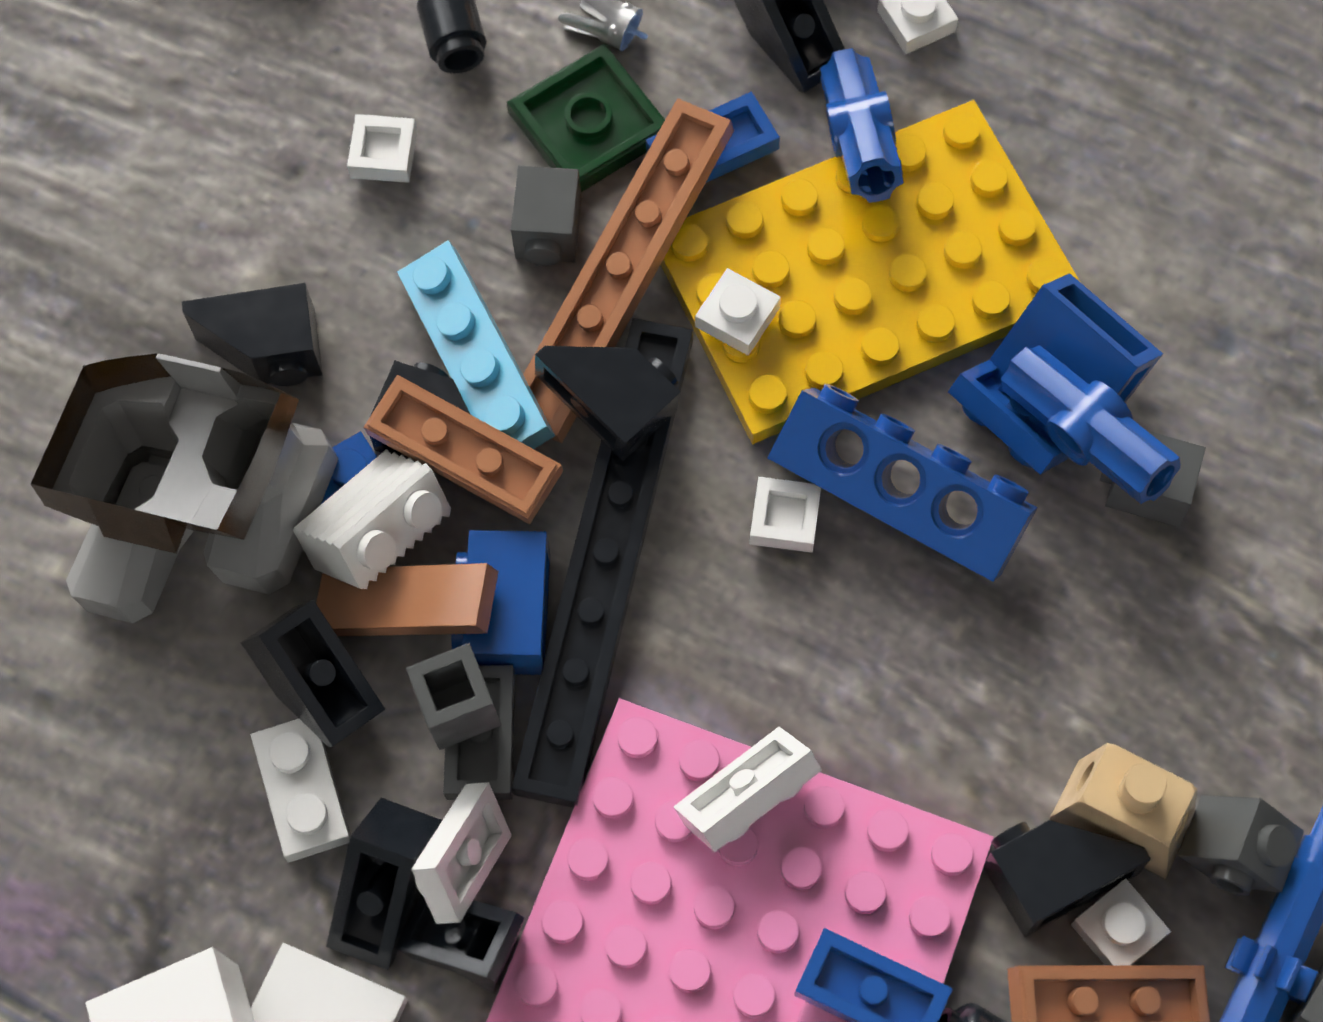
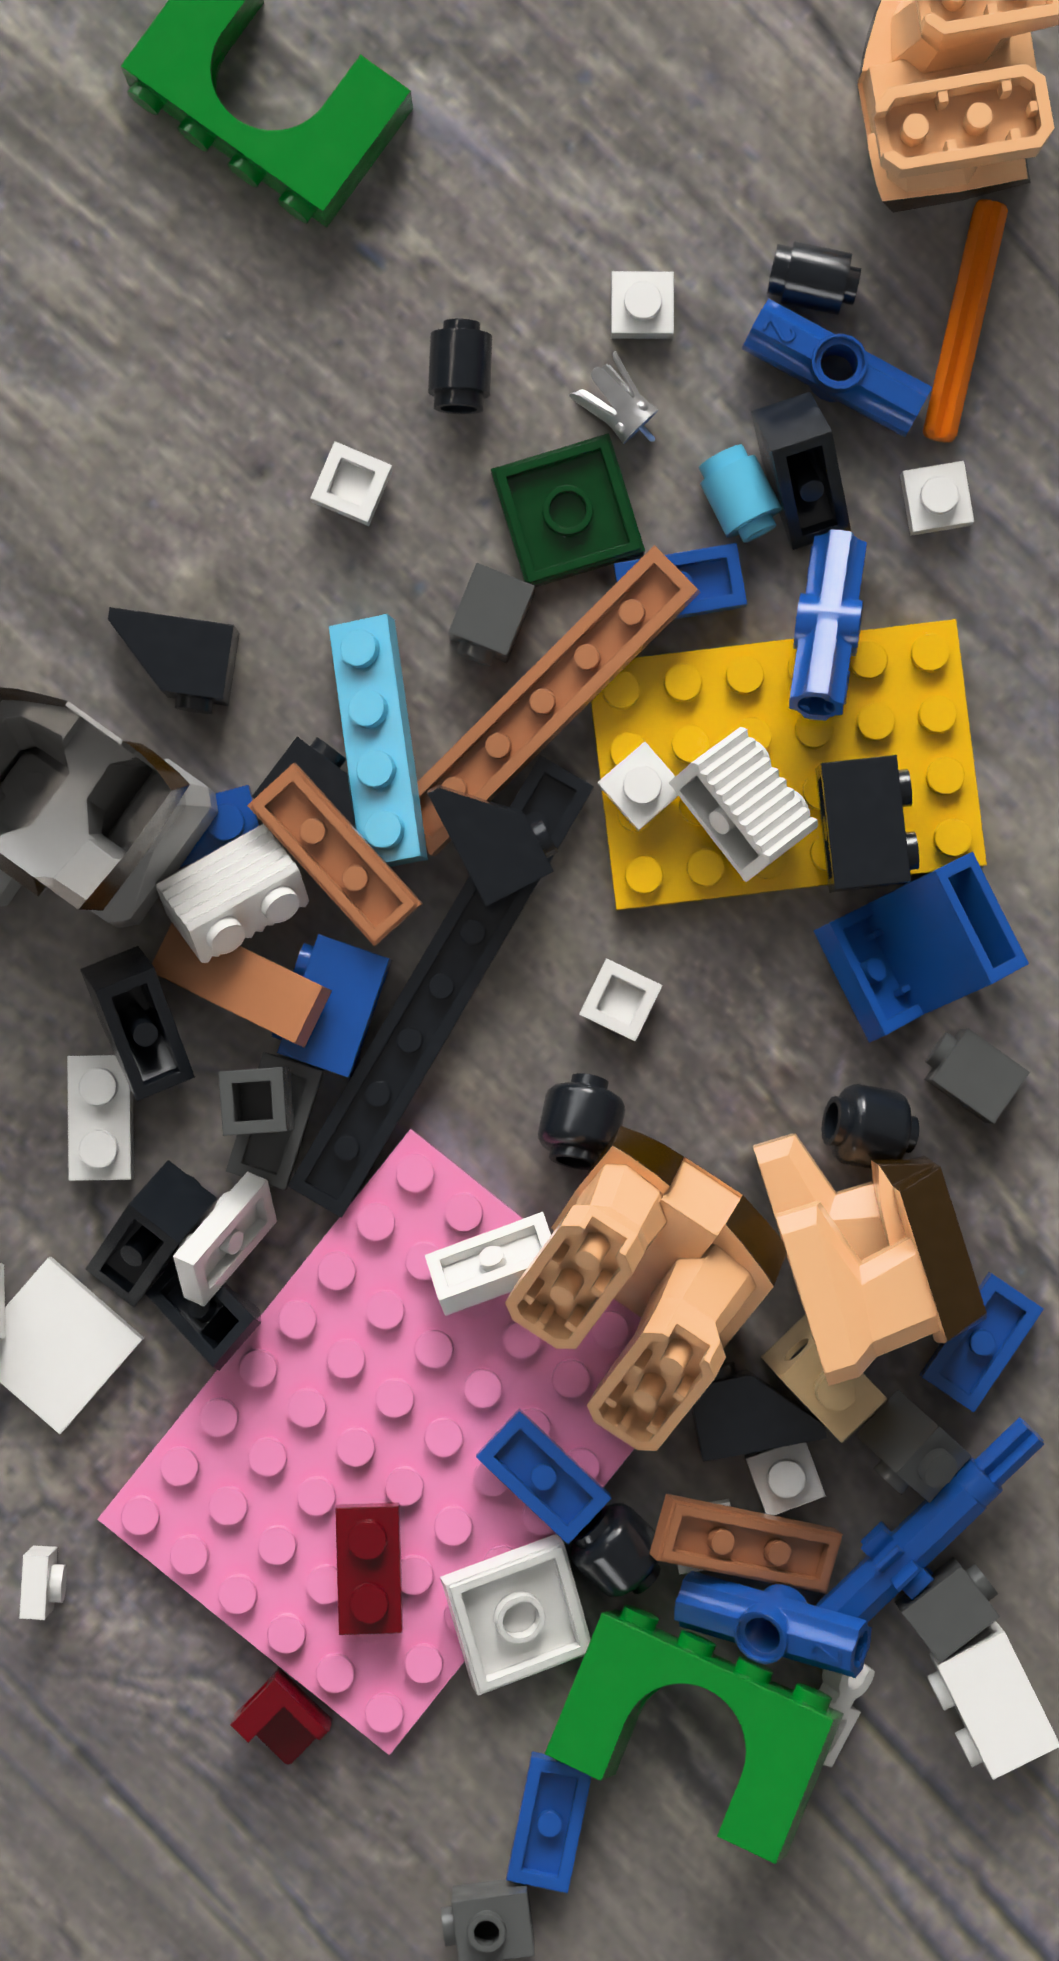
camera: 15 degrees right, 20 degrees up
(739, 54) = (739, 493): none -> medium azure brick
(787, 636) = (579, 1120): none -> black head
(809, 450) = (739, 1043): blue brick -> none
(840, 288) = (744, 803): none -> white brick
(922, 722) = (671, 1251): none -> light nougat piece
(960, 275) = (865, 823): none -> black brick
(1071, 554) = (869, 1125): none -> black head
(1090, 424) = (927, 1020): blue piece -> none
(1136, 654) = (870, 1259): none -> light nougat piece
(1264, 727) = (974, 1360): none -> blue plate

